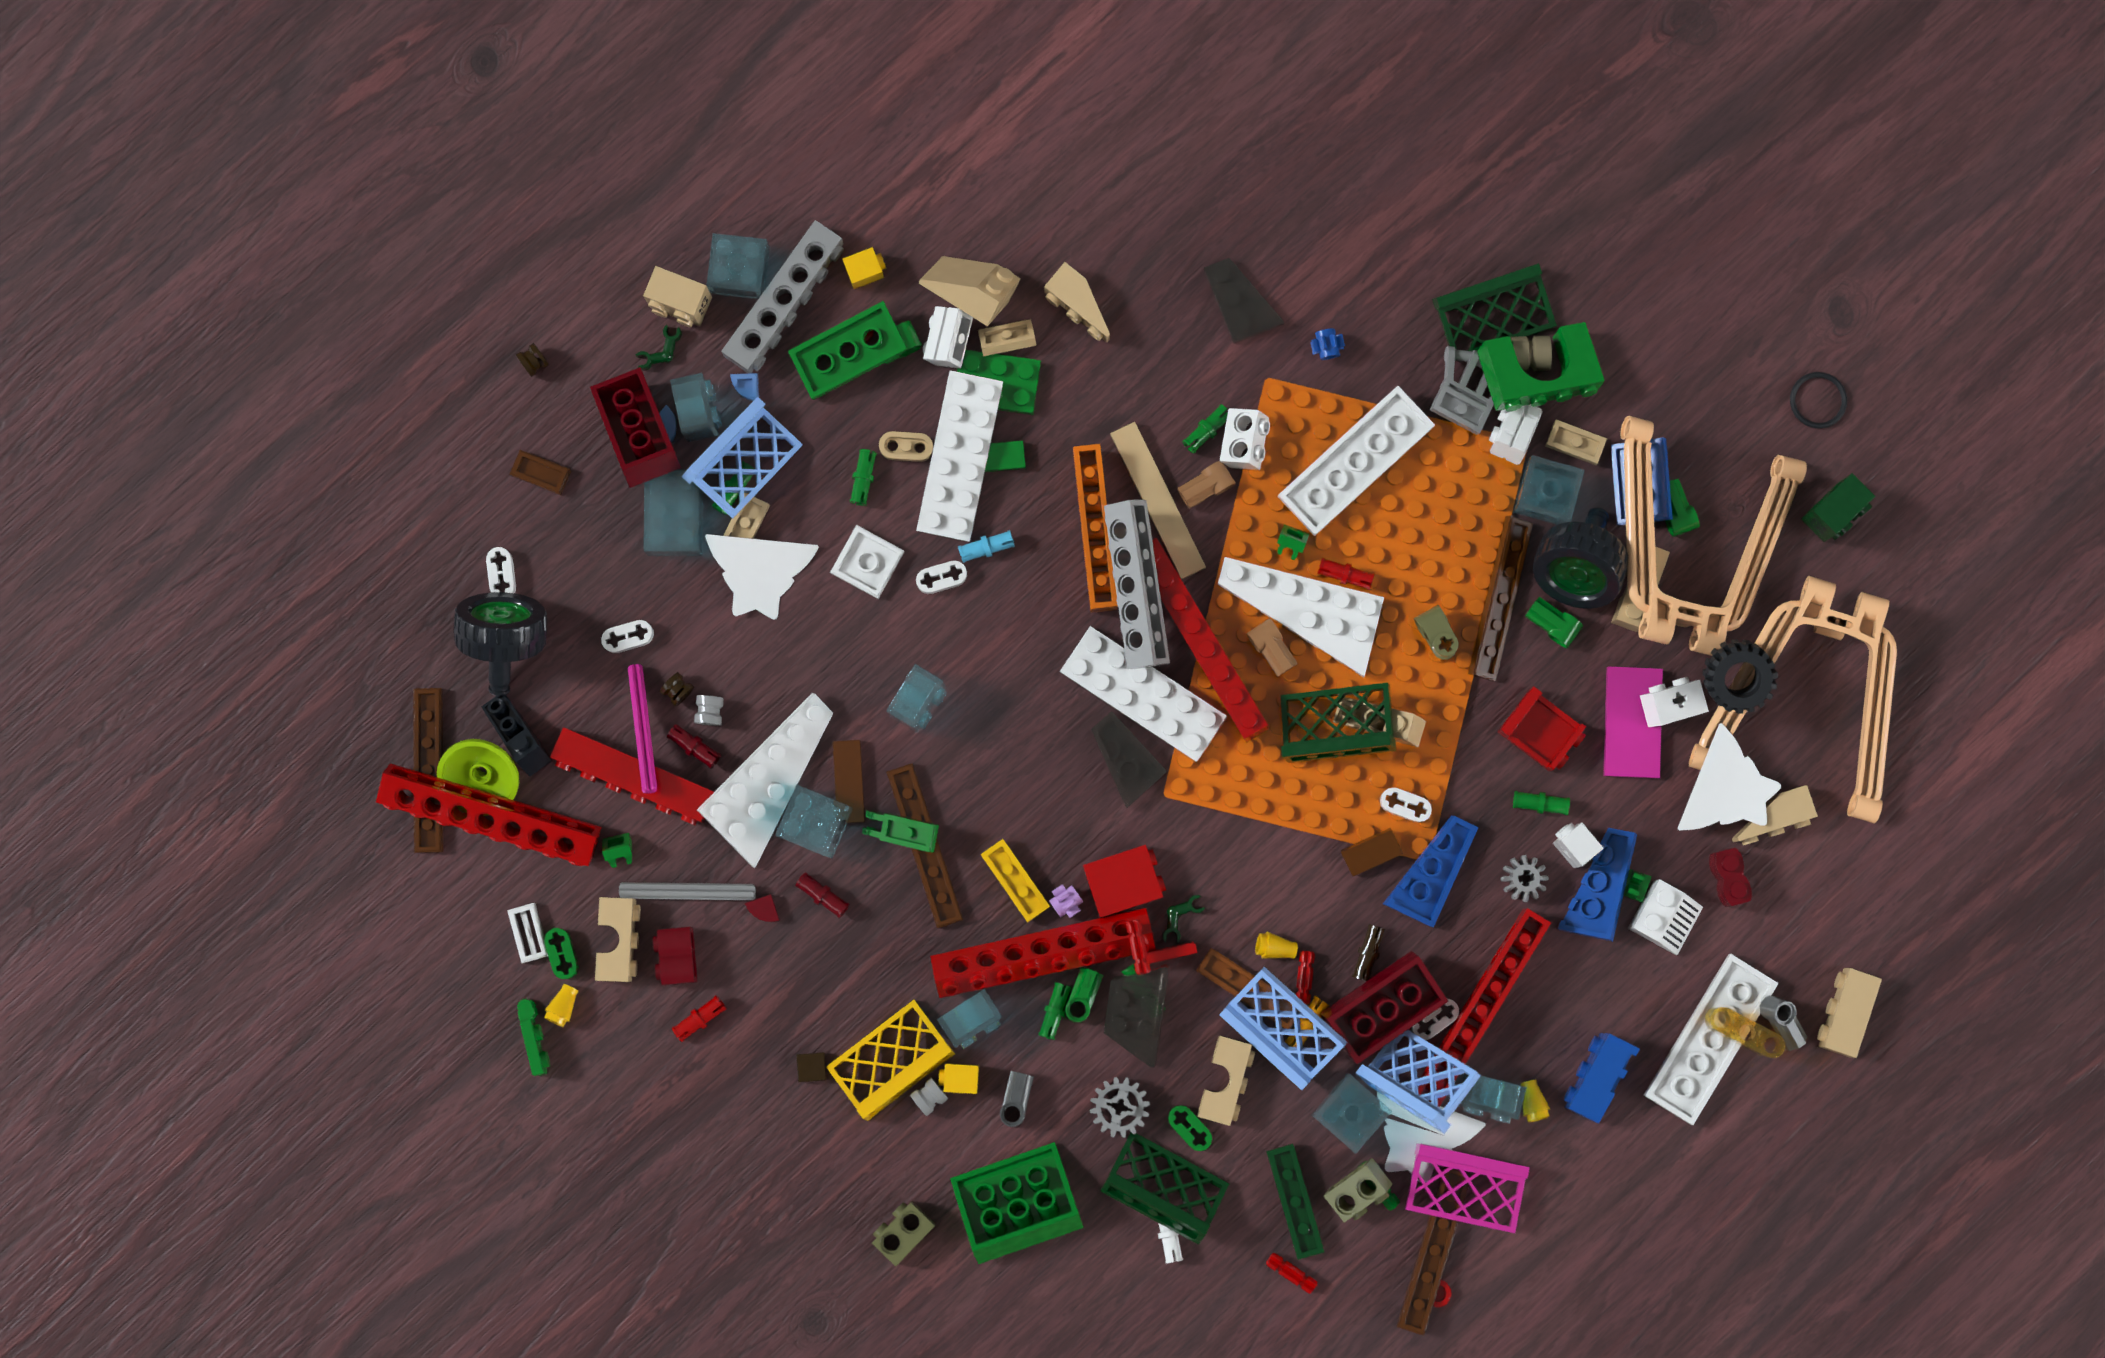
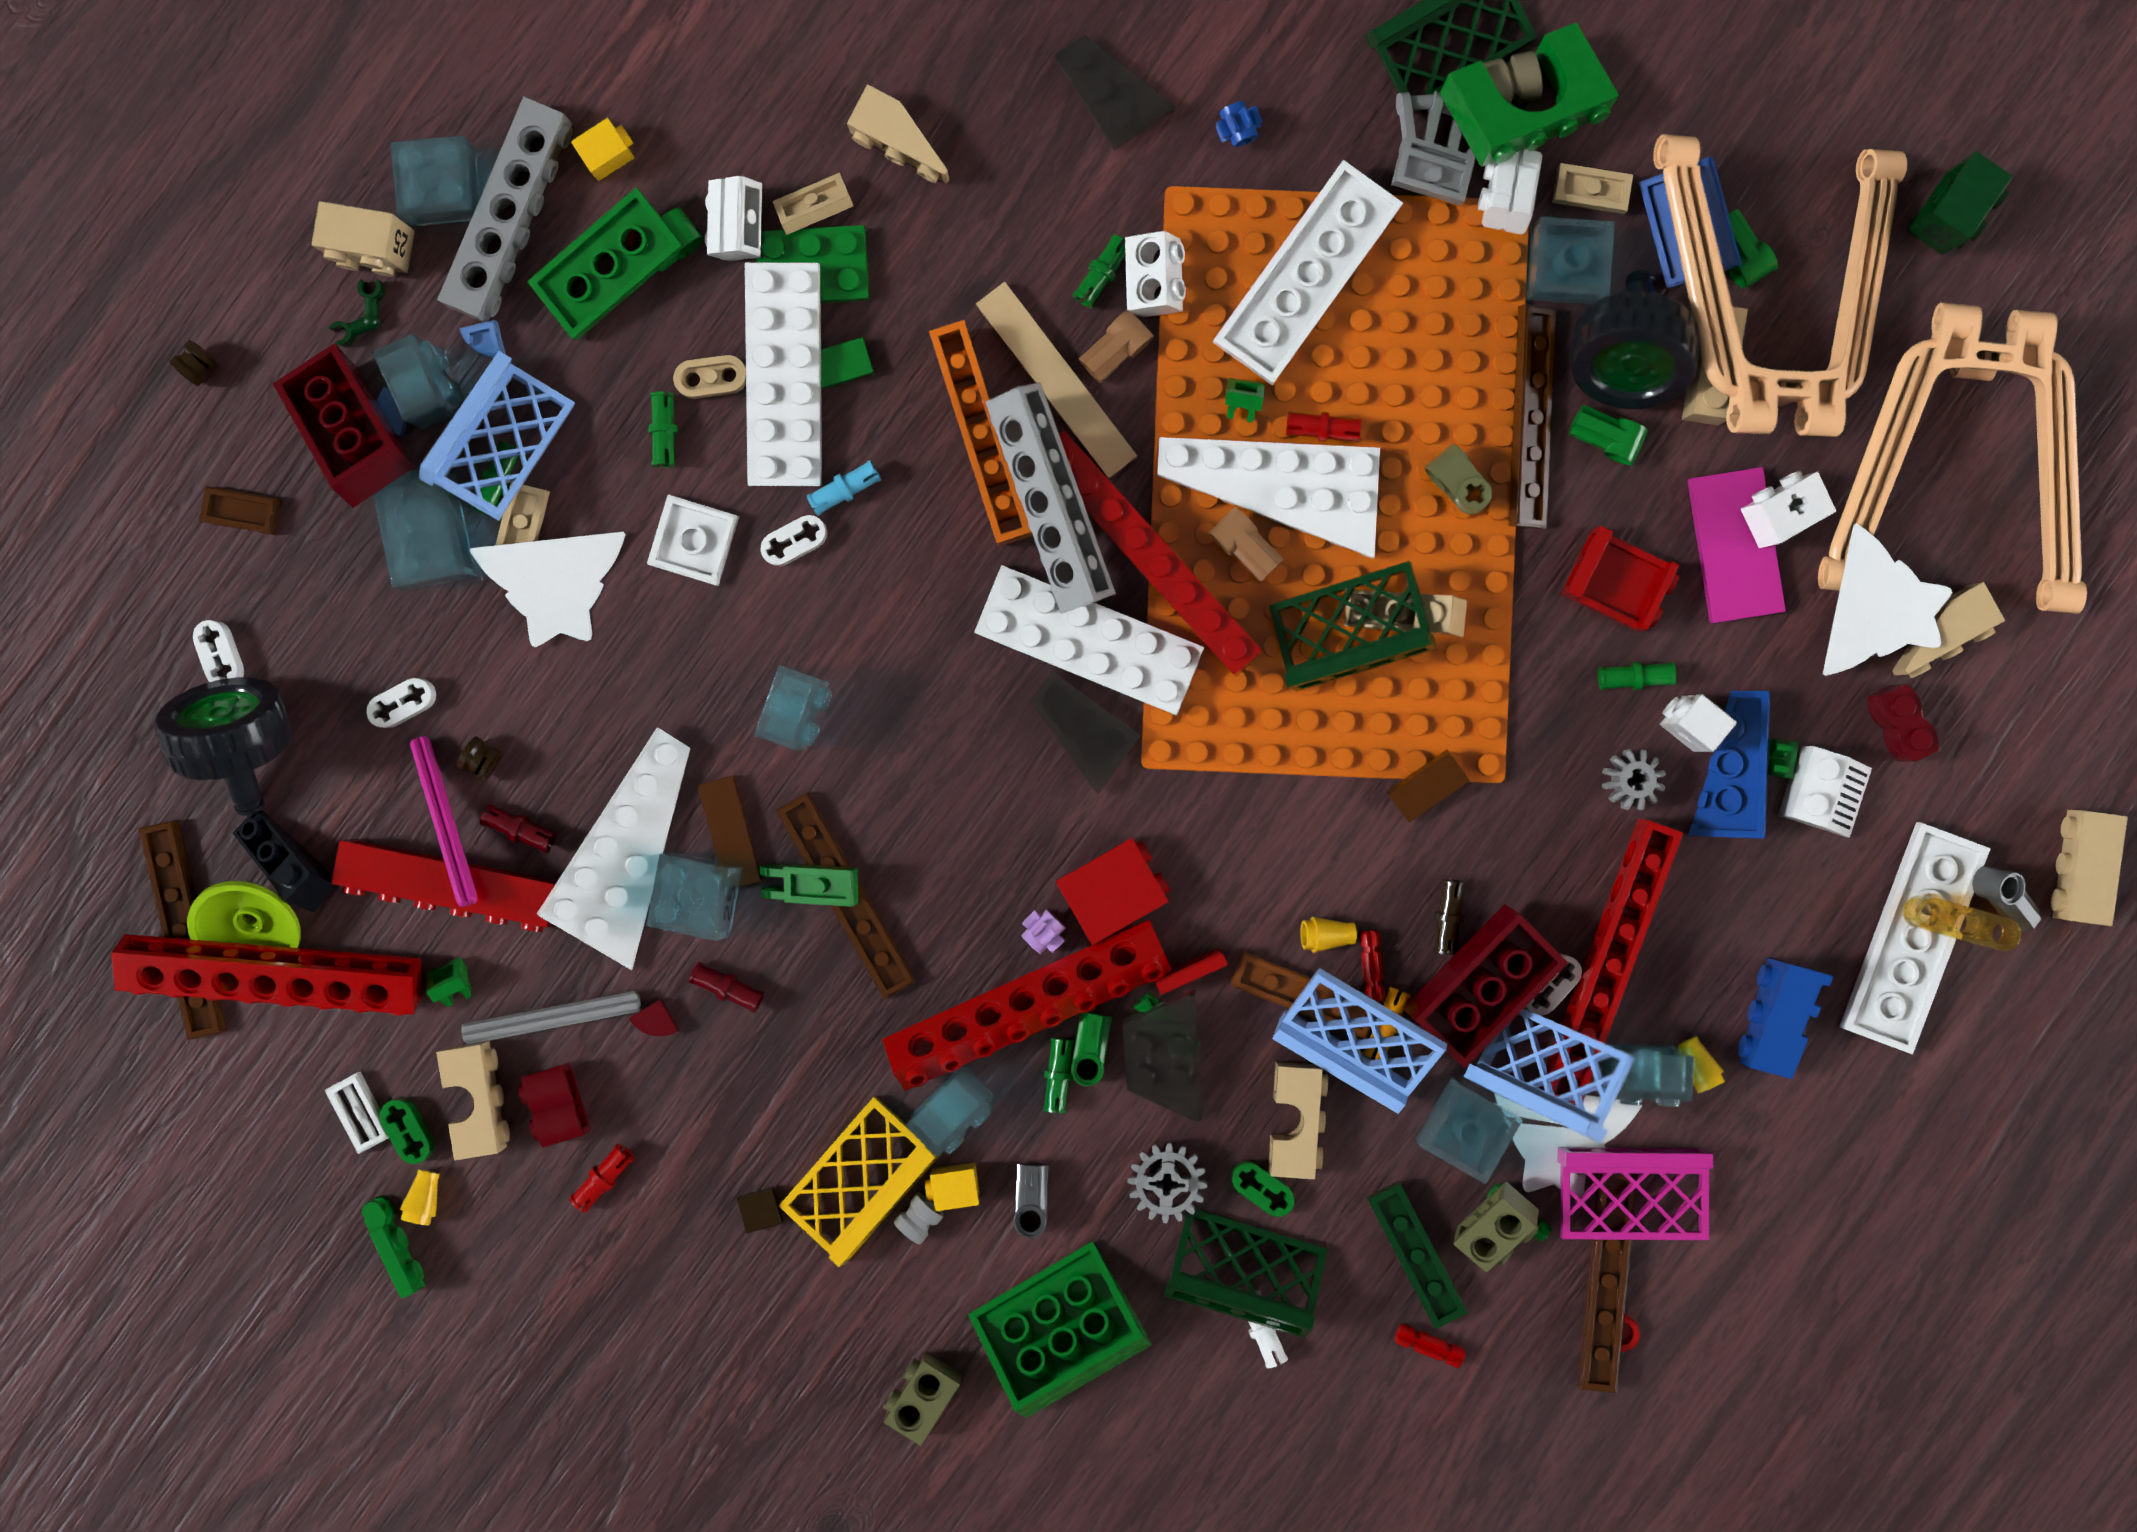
camera: 15 degrees left, 5 degrees up
(708, 710) = (527, 778): light grey wheel -> none
(972, 286) = (752, 143): tan slope -> none
(1015, 880) = (972, 917): yellow plate -> none
(1138, 947) = (1149, 976): red axle -> none
(1174, 912) = (1186, 915): dark green arm -> none
(1403, 811) = (1459, 724): white beam -> none
(1431, 877) = (1512, 803): blue wing -> none
(1751, 695) = (1899, 473): black tyre -> none
(1818, 375) = (1935, 59): black tyre -> none

